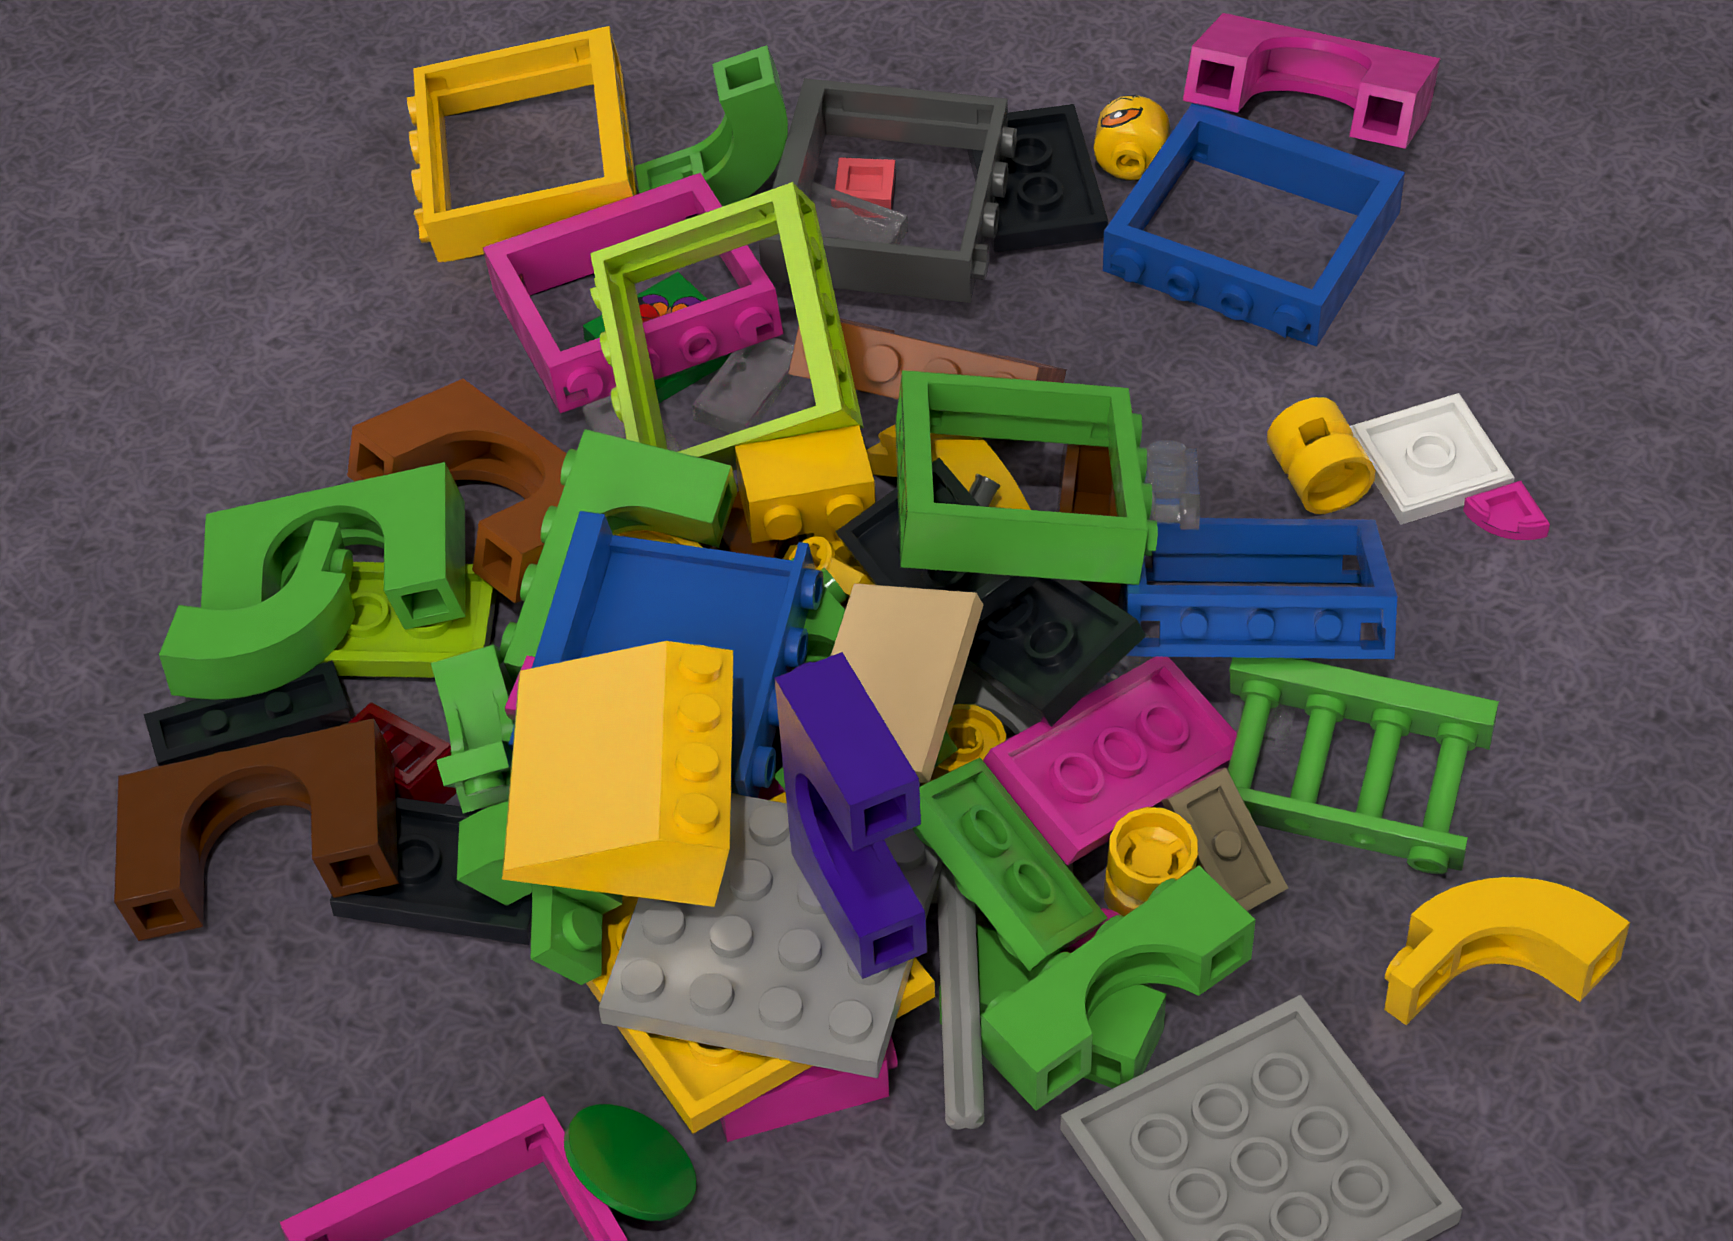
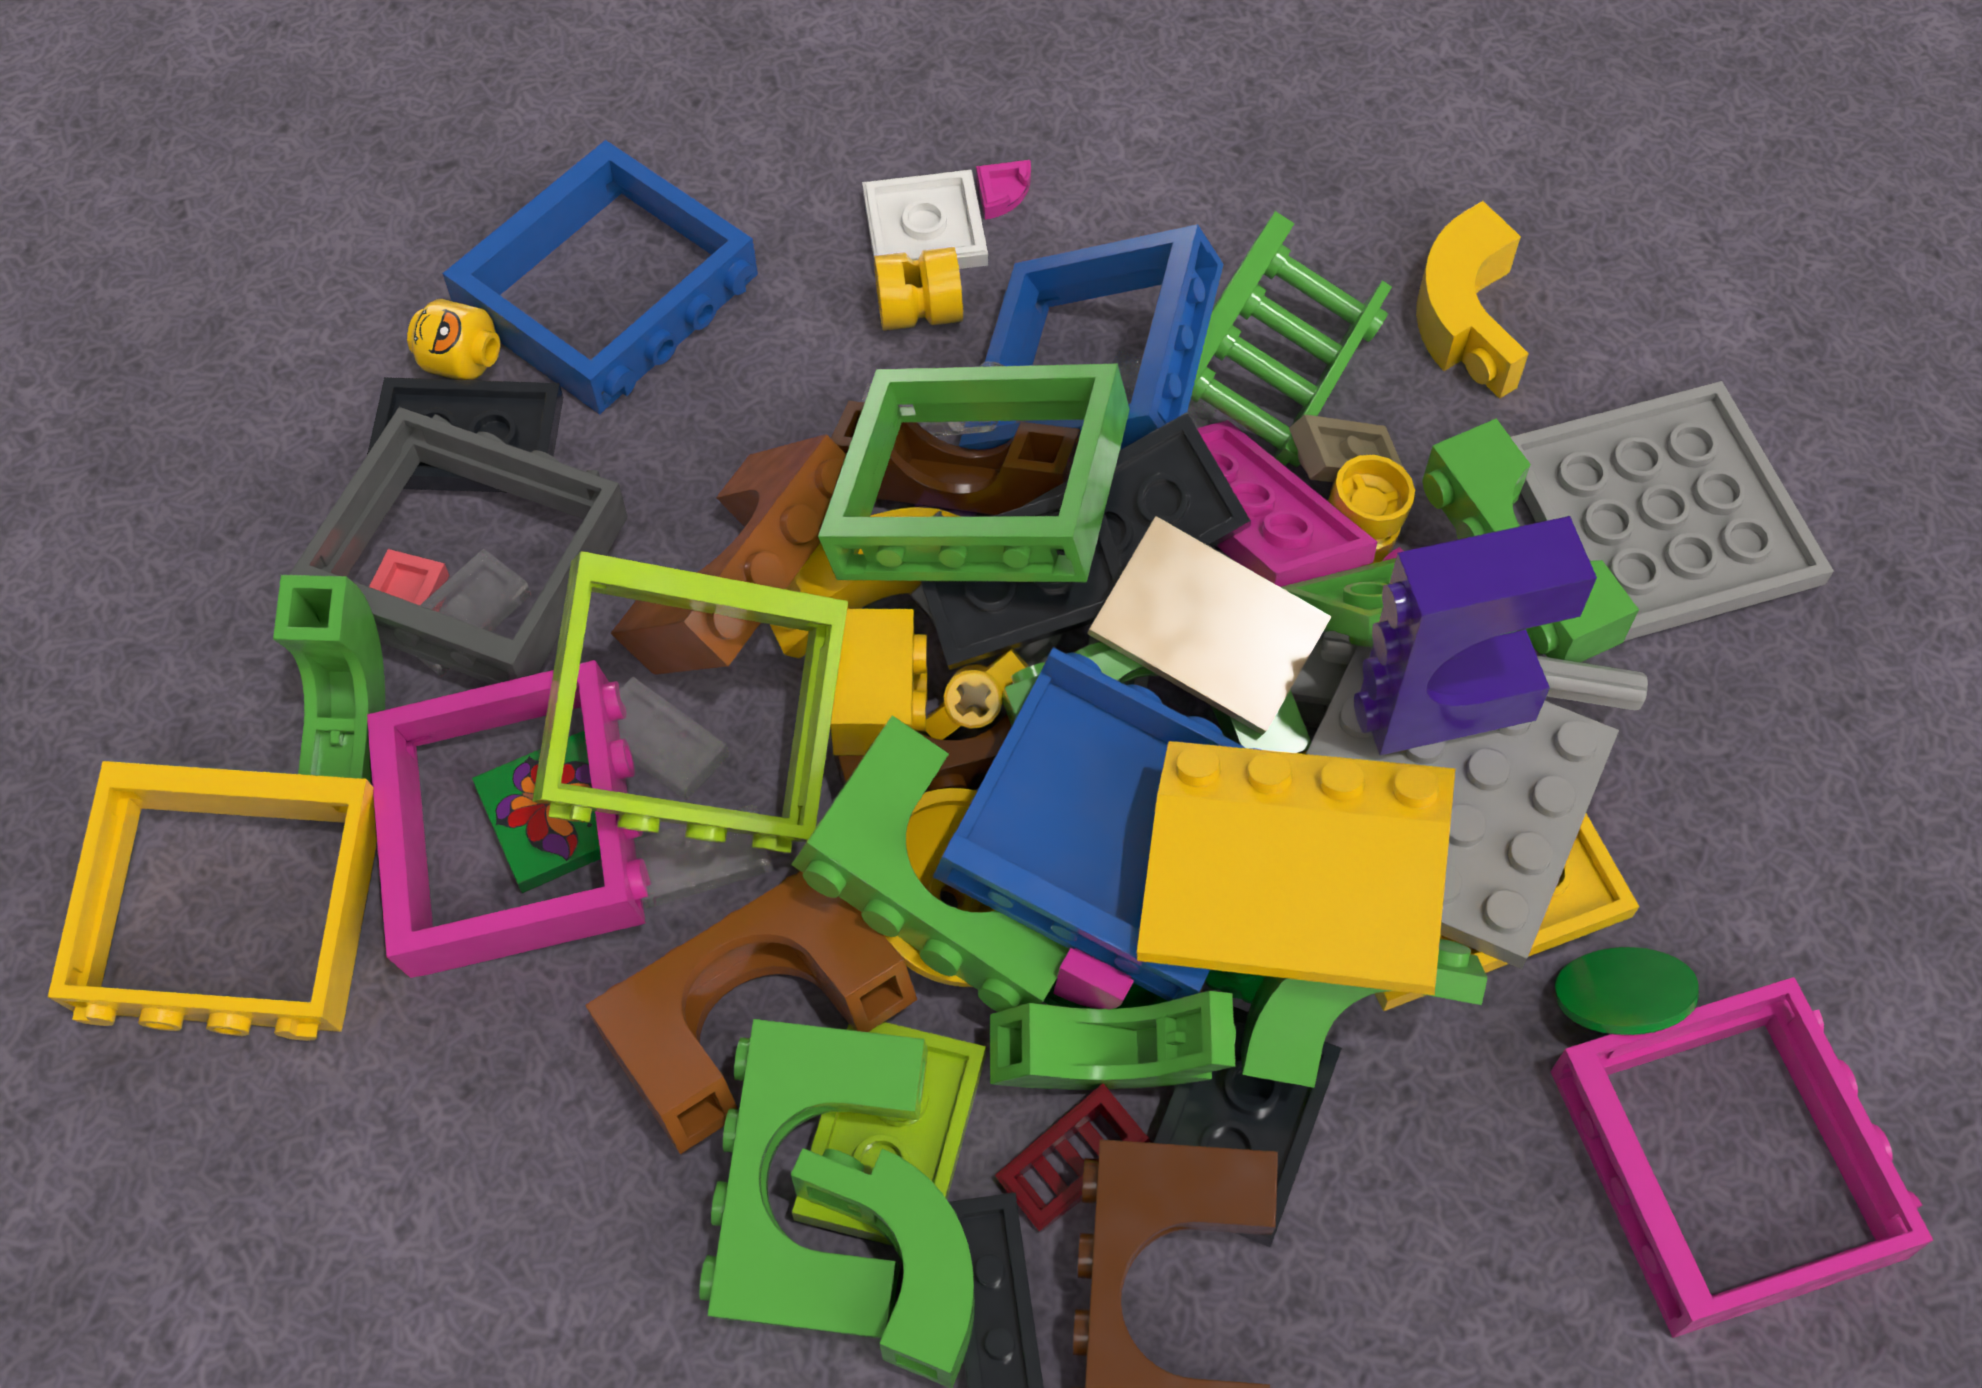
camera: 80 degrees left, 10 degrees up
(1251, 56) = (399, 216): dark pink arch -> none

